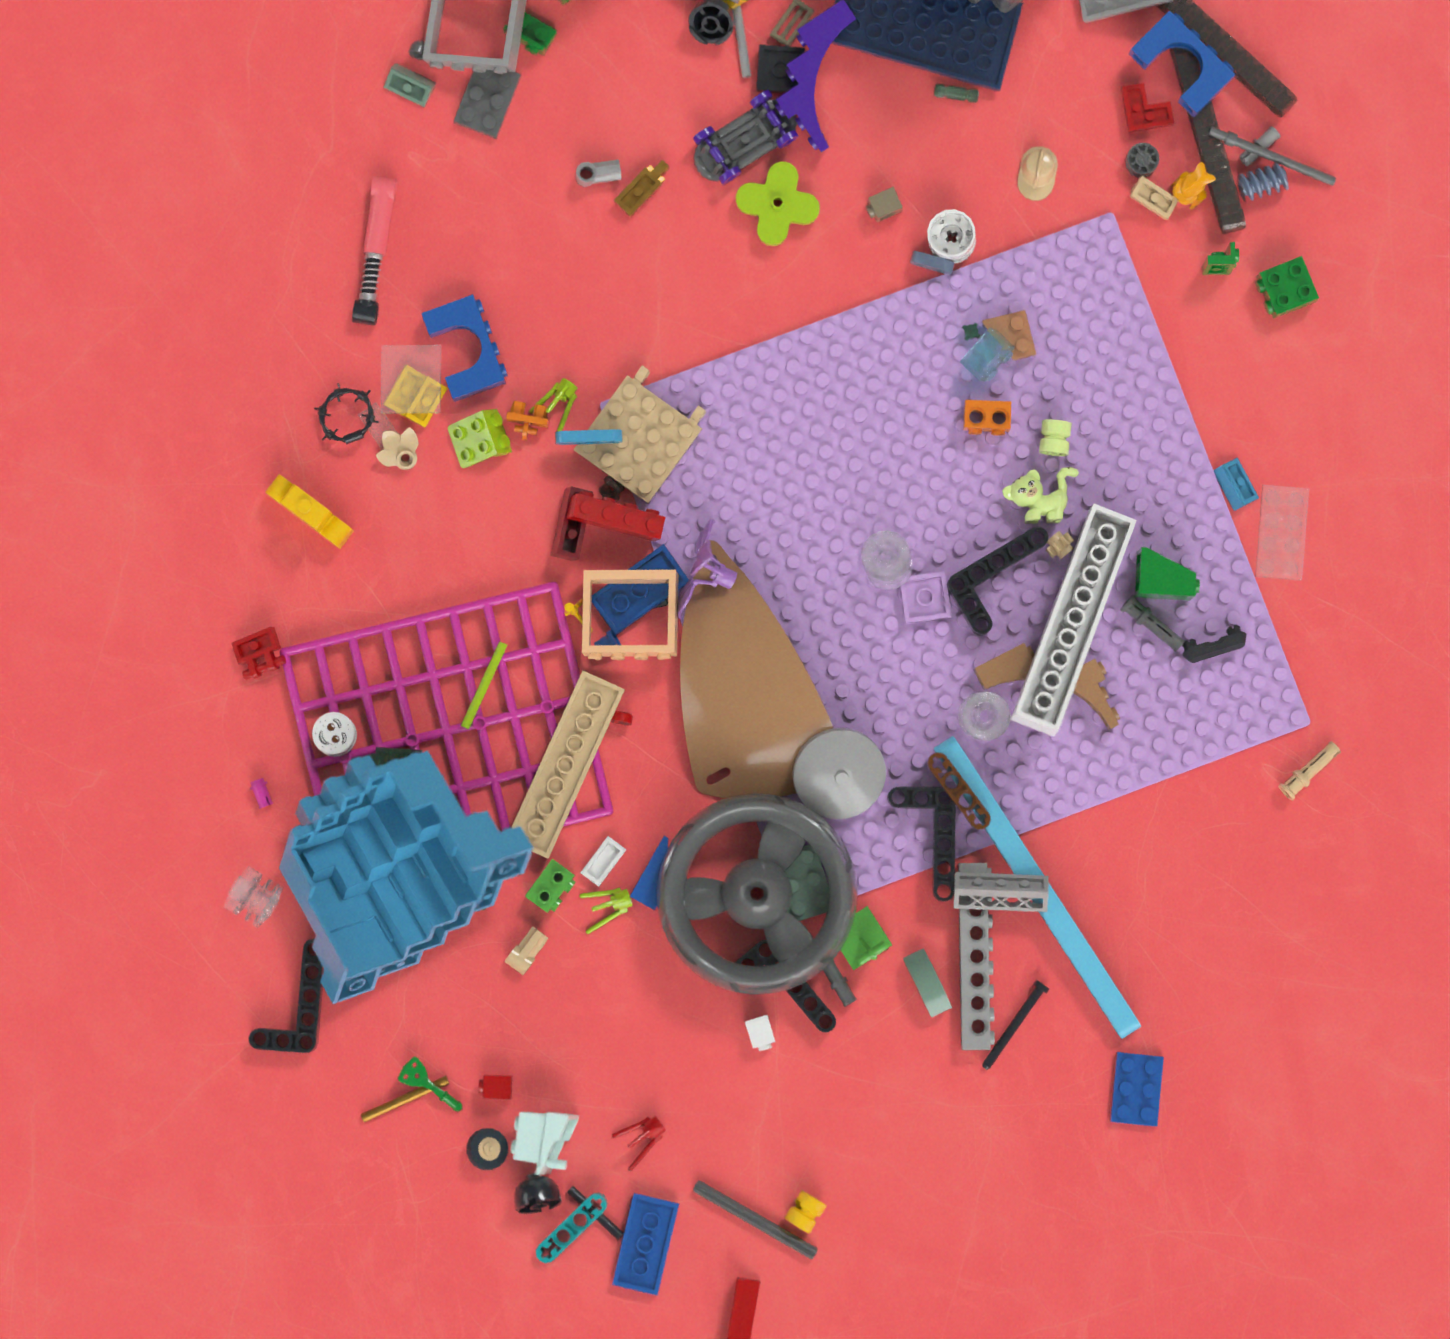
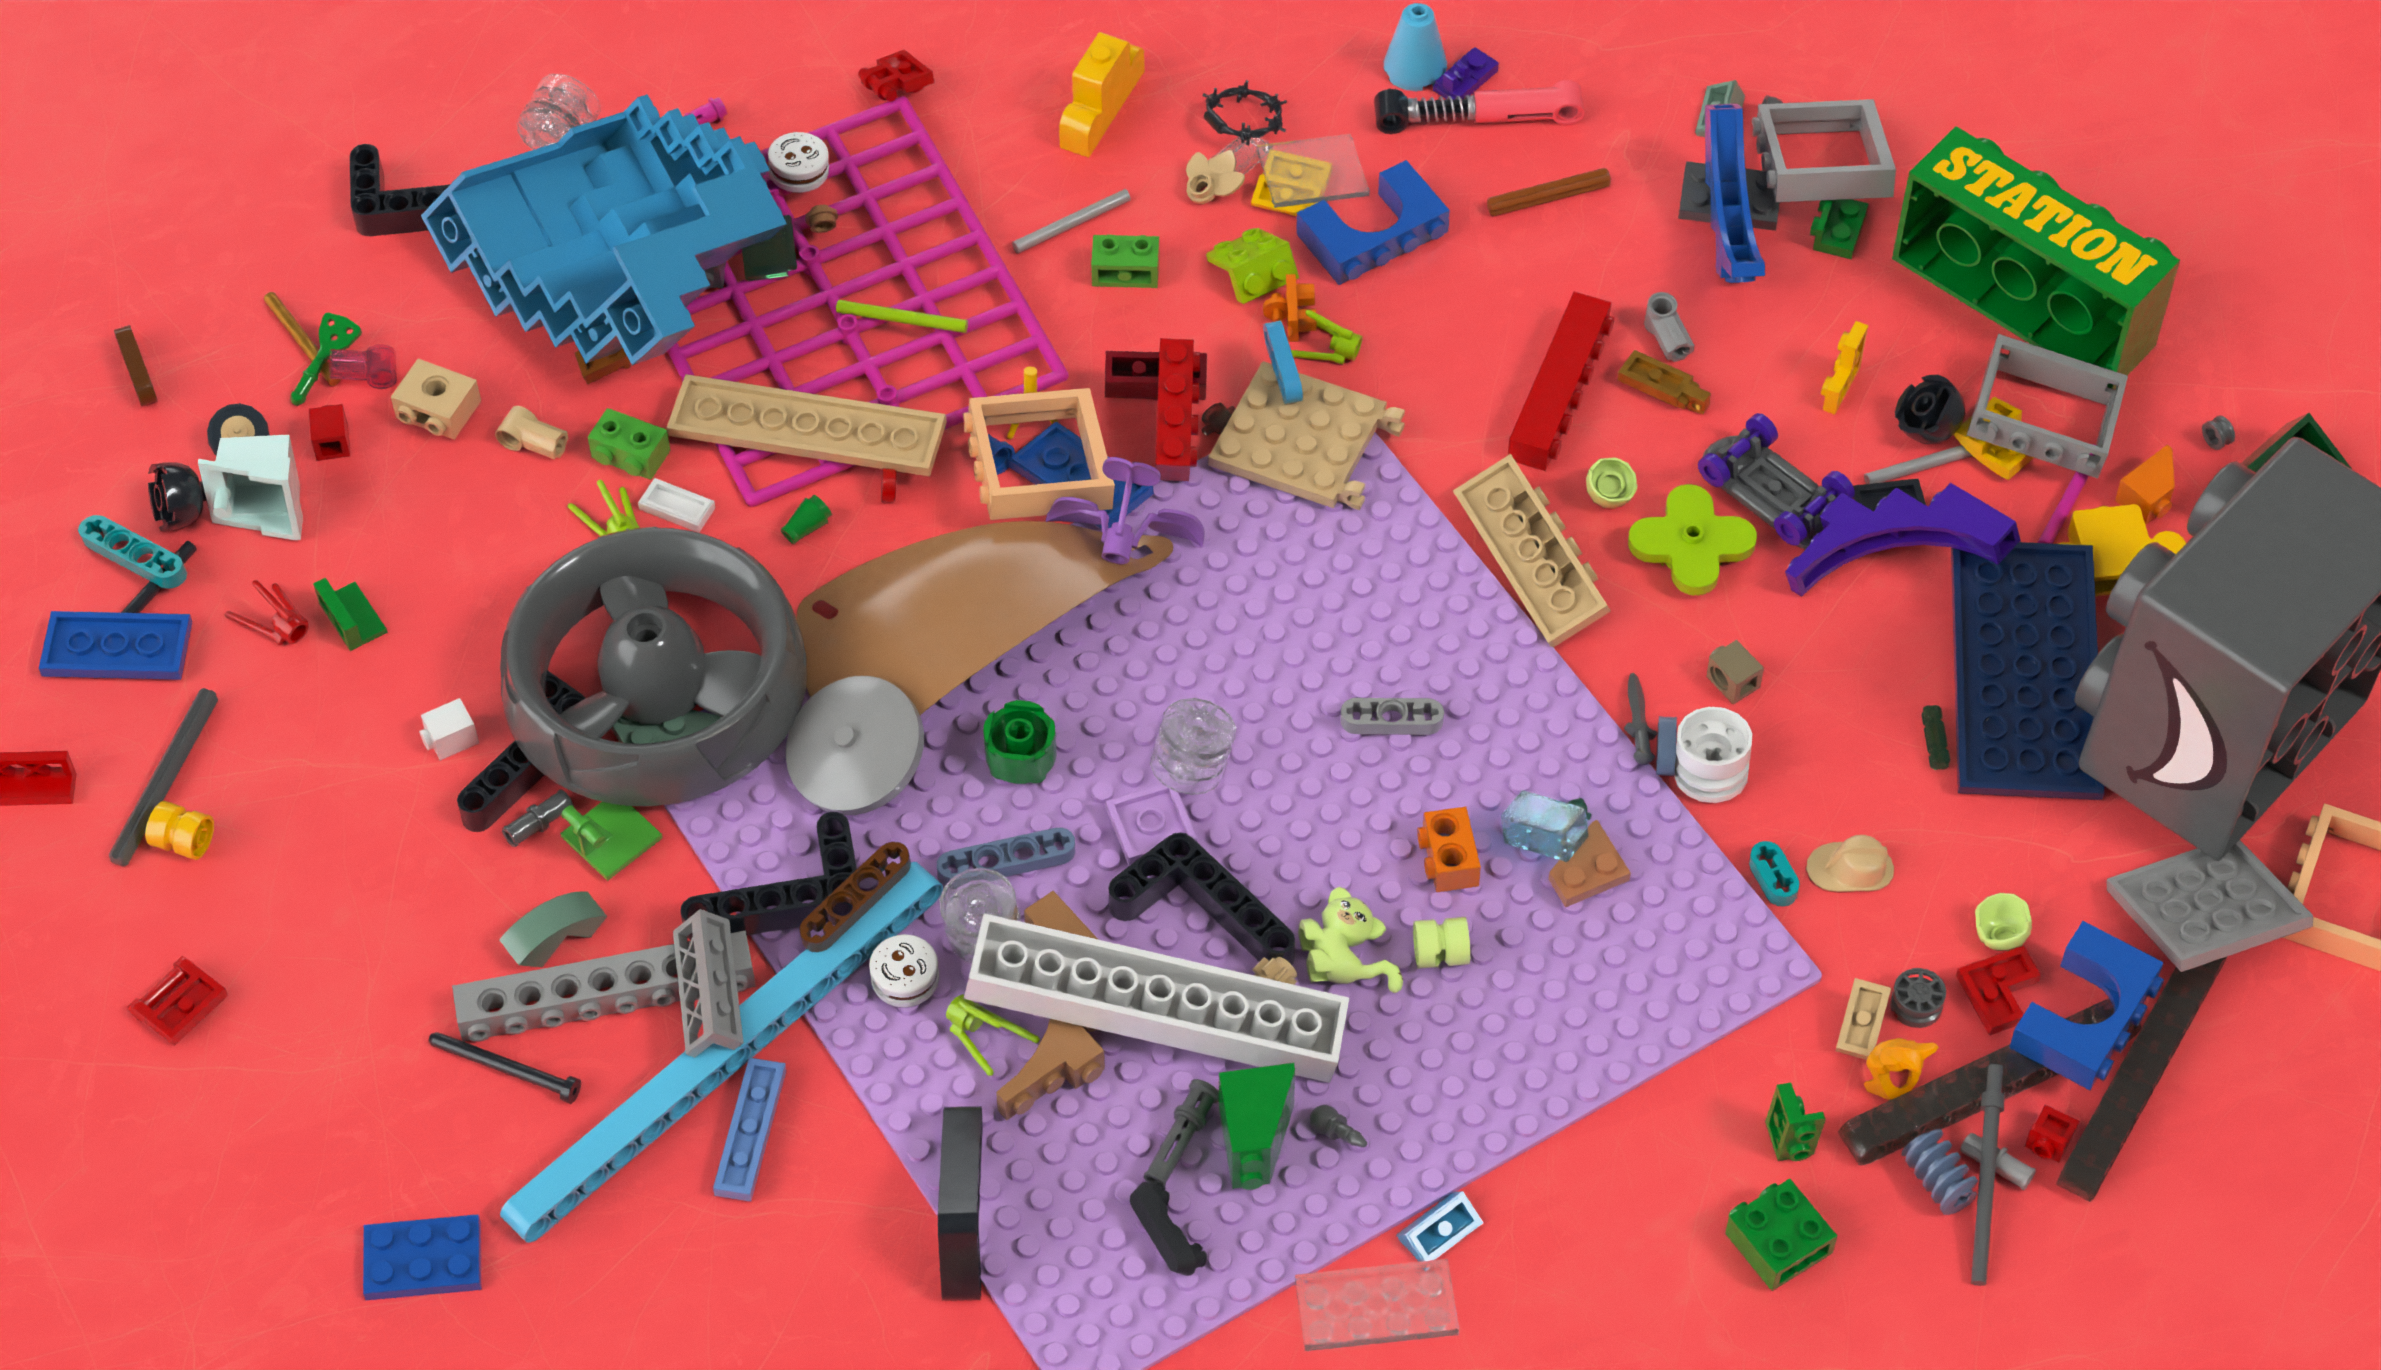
camera: 80 degrees right, 30 degrees down
(319, 285) = (1416, 50): none -> medium azure cone
(338, 252) = (1466, 75): none -> dark purple plate
(388, 726) = (821, 218): none -> medium nougat plate
(409, 1215) = (135, 365): none -> reddish brown beam
(412, 553) = (1071, 221): none -> light grey bar
(445, 1053) = (374, 365): none -> clear pink piece
(458, 221) = (1548, 192): none -> dark orange axle
(461, 523) = (1125, 261): none -> bright green brick
(489, 1026) = (435, 399): none -> tan brick
(516, 104) = (1725, 174): none -> blue arch
(627, 255) = (1560, 381): none -> red brick
(637, 776) = (806, 519): none -> green cone
(649, 1086) = (349, 613): none -> green panel
(658, 61) = (1845, 367): none -> yellow plate
(722, 244) = (1611, 482): none -> yellowish green hair
(765, 308) = (1533, 550): none -> tan plate
(868, 662) = (1020, 743): none -> green brick
(874, 411) = (1417, 706): none -> light grey beam
(913, 275) = (1639, 727): none -> dark grey sword
(934, 1217) = (183, 1007): none -> red plate
(936, 692) = (1004, 852): none -> sand blue beam
(1005, 769) = (904, 970): none -> white head
(1034, 216) = (1779, 870): none -> teal beam
(1045, 740) = (970, 1016): none -> lime plant
(1091, 881) = (749, 1129): none -> medium blue plate
(1104, 93) = (2003, 921): none -> yellowish green hair
(1158, 534) = (1328, 1122): none -> dark grey bar
(1171, 760) = (960, 1203): none -> black beam
(1250, 110) = (2051, 1134): none -> red bracket

